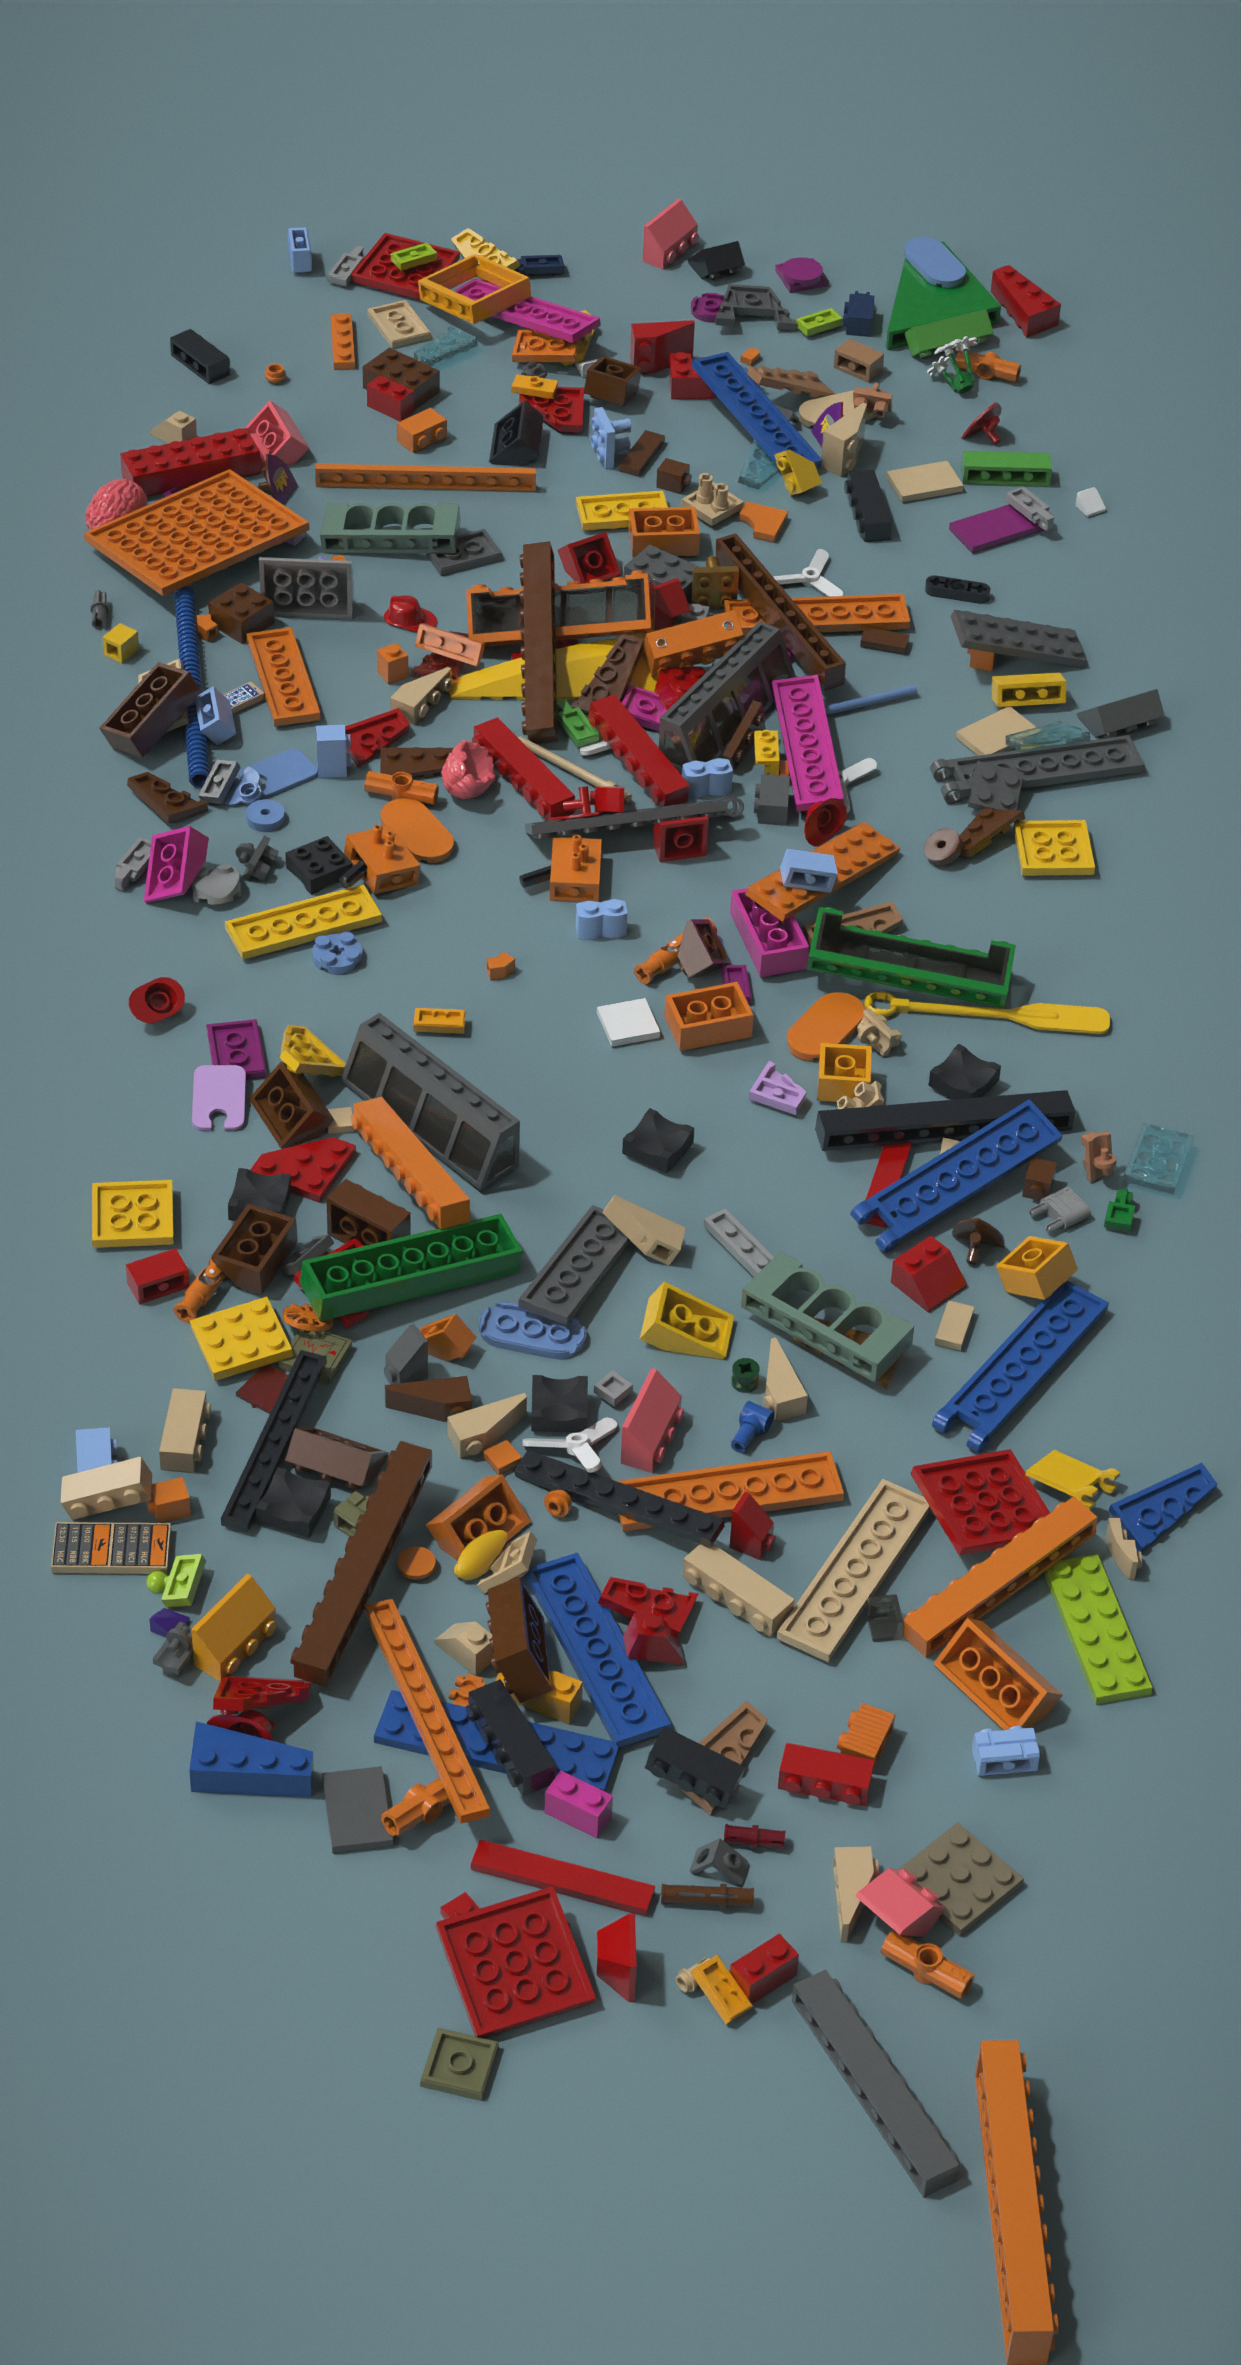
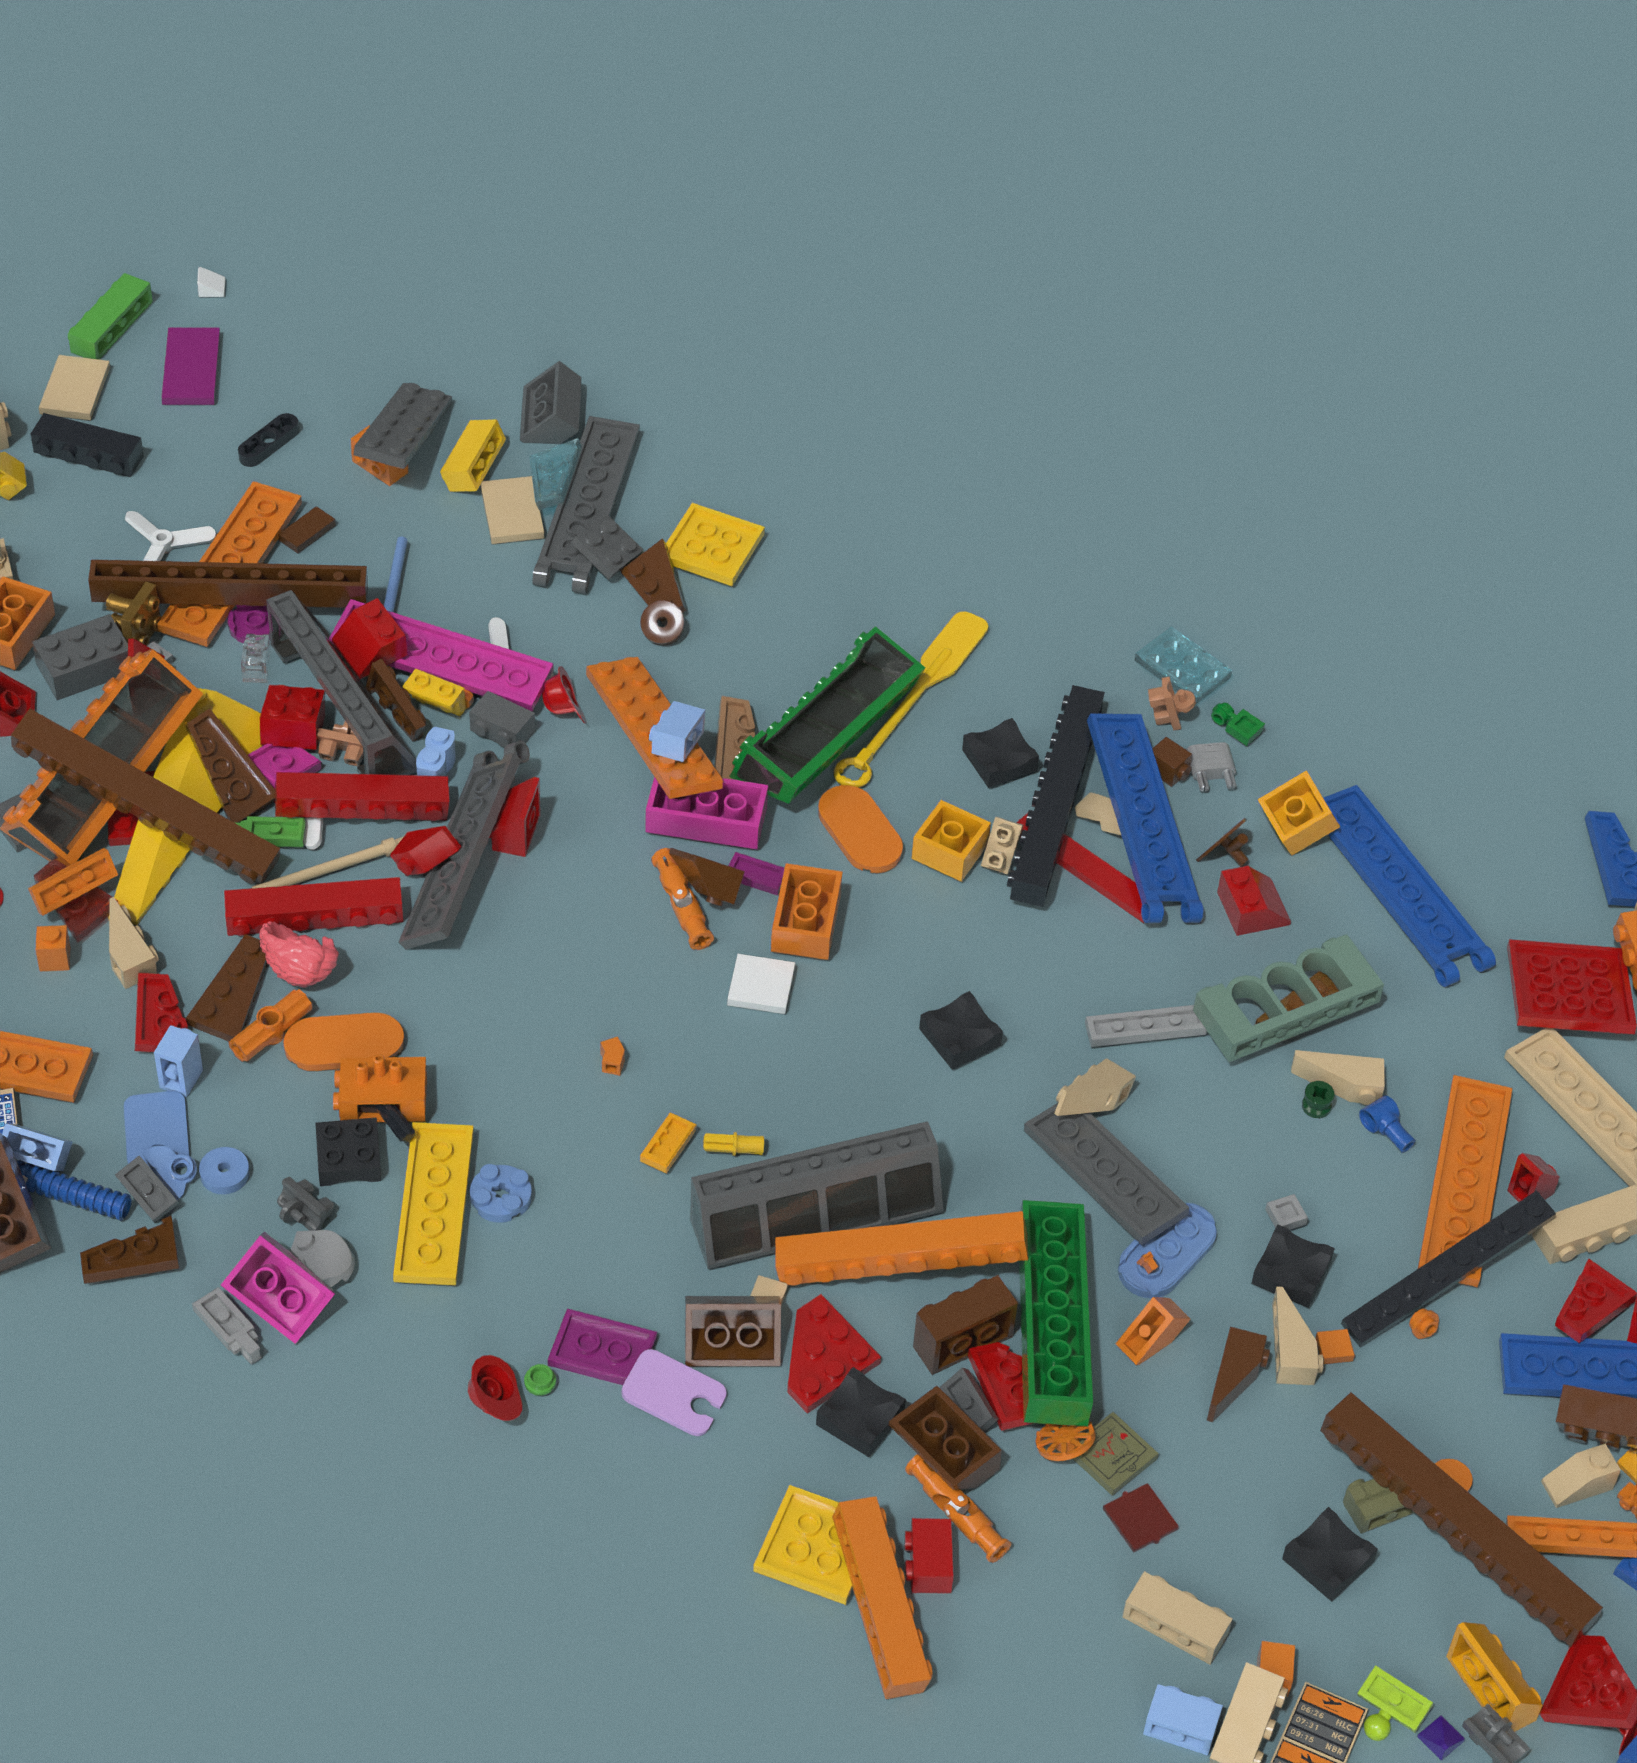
camera: 65 degrees left, 5 degrees up
(99, 1254) = (882, 1597): none -> orange brick
(187, 1026) = (539, 1380): none -> bright green plate
(241, 1338) = (1062, 1512): yellow plate -> none
(273, 1440) = (1233, 1538): black plate -> none
(308, 1054) = (669, 1277): yellow plate -> none
(335, 1457) = (1277, 1489): reddish brown slope -> none
(407, 1357) = (1178, 1368): dark grey slope -> none
(463, 1055) = (733, 1143): none -> yellow axle
(480, 1555) = (1469, 1417): yellow arm -> none
(482, 1509) = (1420, 1401): orange slope -> none
(503, 1313) = (1148, 1262): none -> orange piece
(511, 1563) = (1492, 1394): tan wing -> none
(573, 870) = (504, 931): orange piece -> none
(579, 1443) = (1356, 1274): white piece -> none
(583, 804) = (423, 885): red shield -> none
(601, 919) = (600, 938): light blue brick -> none
(651, 1423) = (1358, 1203): coral slope -> none
(686, 1324) = (1228, 1118): yellow slope -> none
(692, 642) = (249, 671): orange piece -> none
(764, 520) = (39, 536): orange tile -> none
(777, 1090) = (935, 905): lavender wing -> none
(786, 695) = (370, 636): none -> red slope
(874, 1030) = (899, 791): tan hips -> none
(954, 1325) = (1322, 911): tan tile -> none
(987, 422) = (32, 296): red shield -> none
(1030, 507) = (194, 325): light grey hinge -> none
(1073, 1476) = (1562, 910): yellow flag -> none

